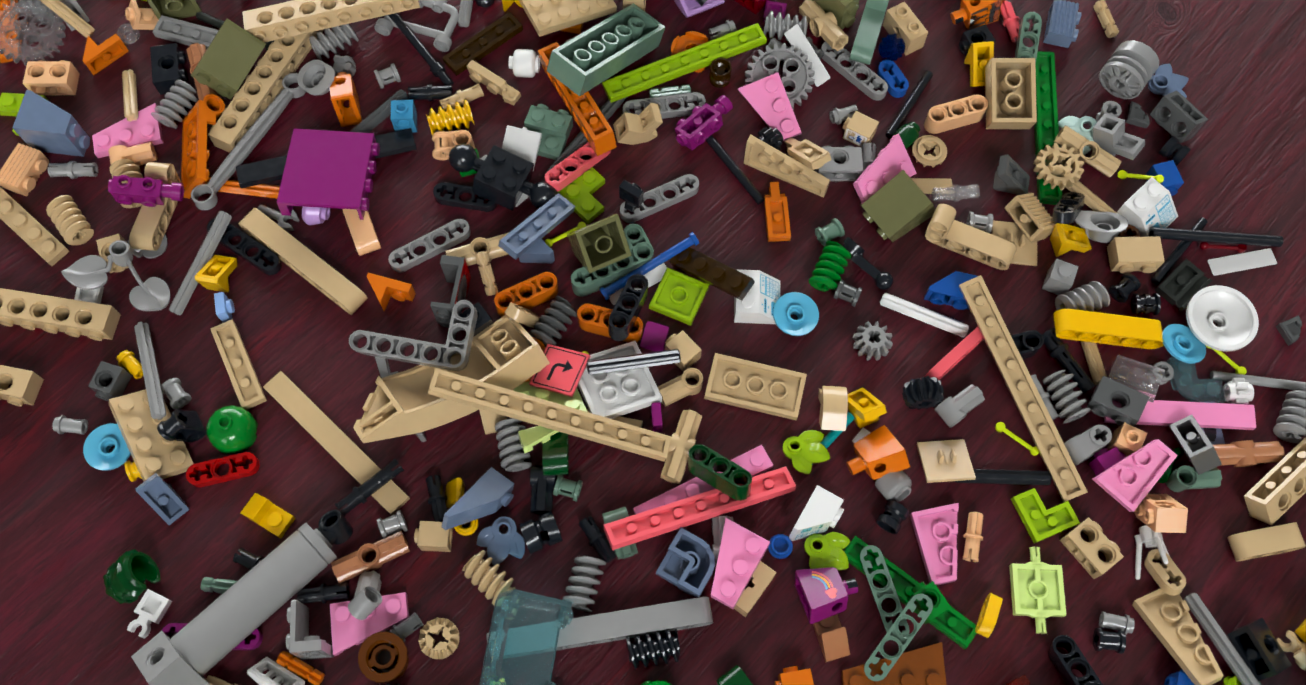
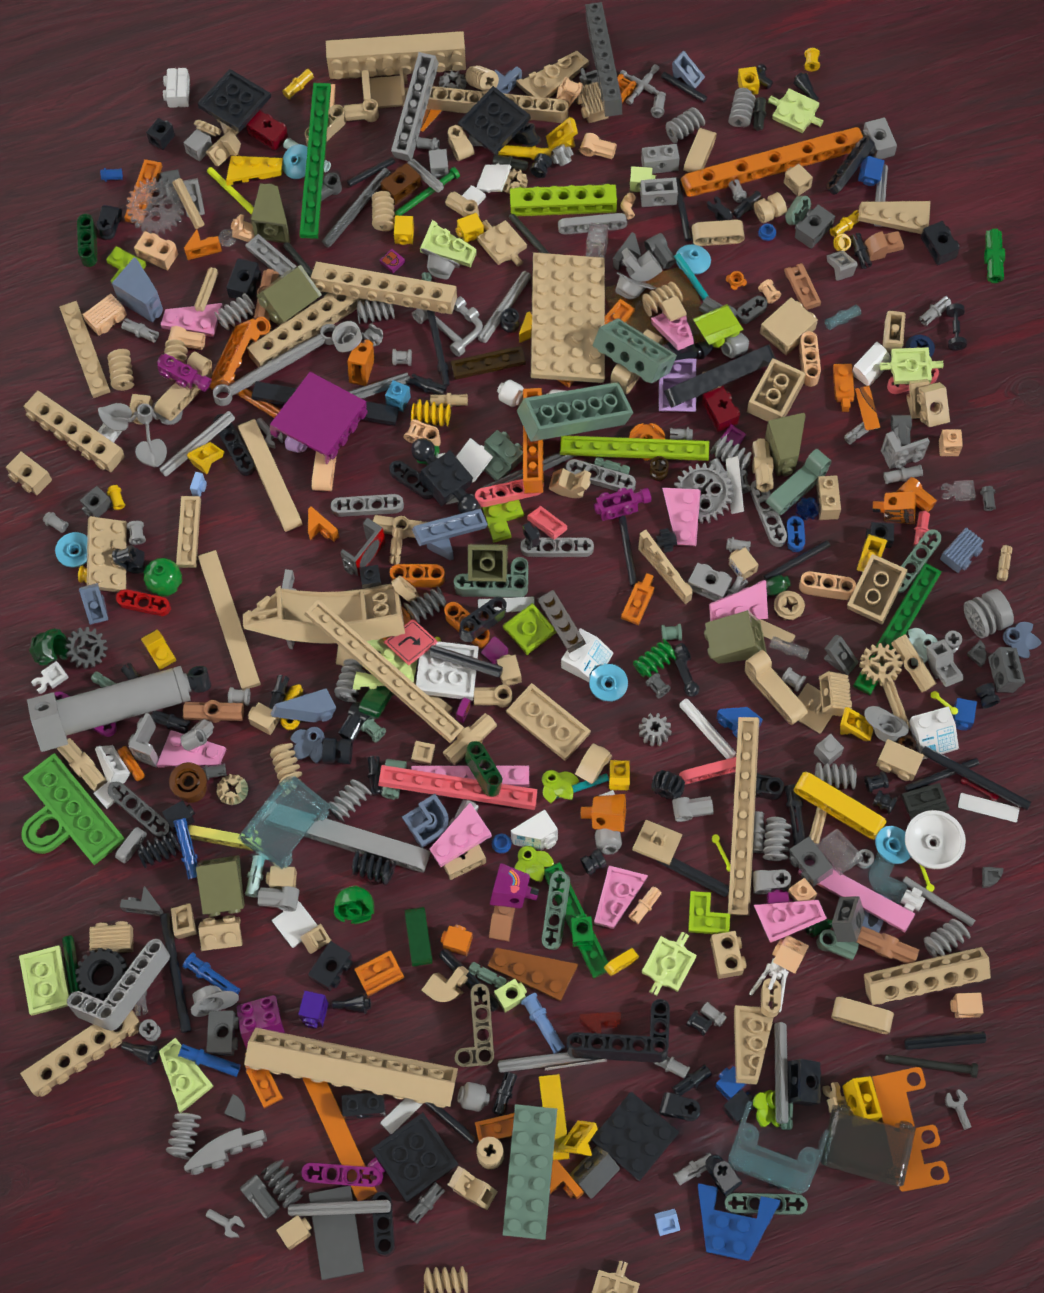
camera: 30 degrees right, 0 degrees up
(150, 371) = (126, 508): light grey axle -> none
(169, 548) = (88, 655): none -> dark grey gear
(369, 487) = (236, 662): black pin -> none
(421, 348) = (319, 580): light grey beam -> none
(493, 82) = (479, 399): tan hinge -> none
(549, 242) = (455, 543): neon yellow hinge -> none
(638, 487) = (423, 753): none -> tan plate
(643, 177) = (547, 522): none -> coral tile
(650, 265) = (521, 595): blue bar -> none
(807, 153) = (686, 563): tan hinge -> none
(900, 638) = (546, 945): sand green beam -> none
(1068, 208) = (866, 700): black beam -> none

